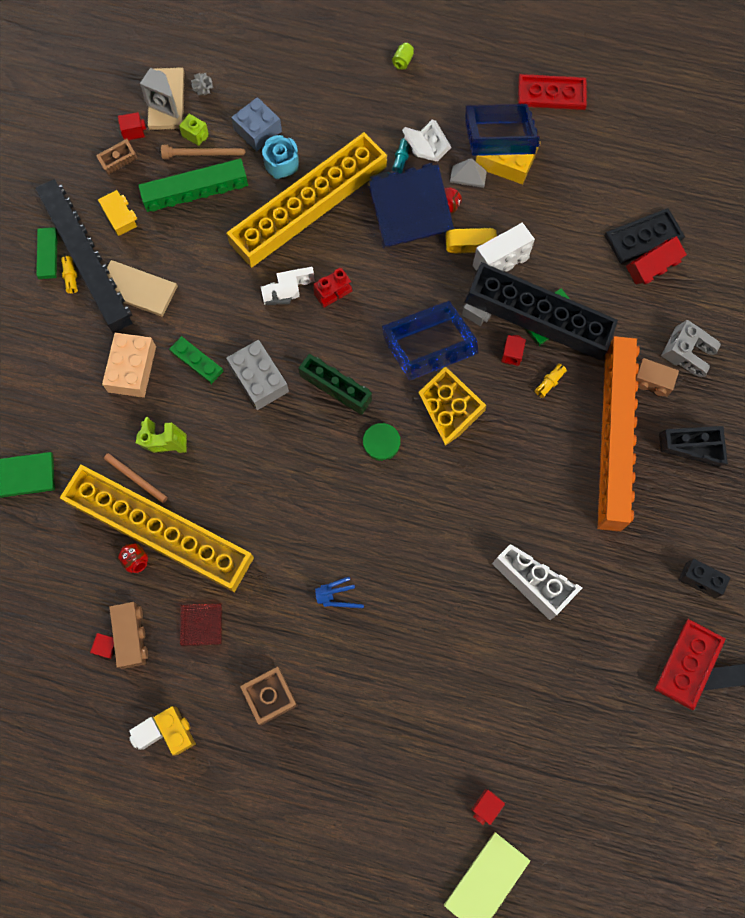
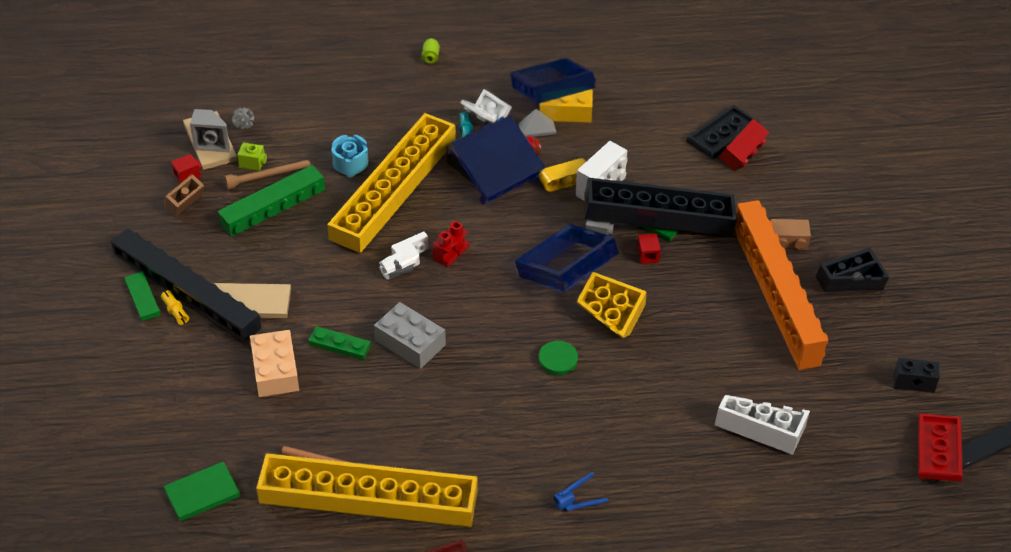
camera: 20 degrees left, 25 degrees down
(118, 213) = (204, 241): yellow brick -> none
(133, 558) = (353, 525): red head -> none
(169, 440) = (337, 416): lime tile -> none
(256, 123) = (312, 136): sand blue brick -> none
(335, 384) = (491, 320): dark green brick -> none
(550, 380) = (695, 264): yellow pin -> none
(552, 91) = (584, 45): red tile -> none
(681, 344) = (804, 200): light grey brick -> none

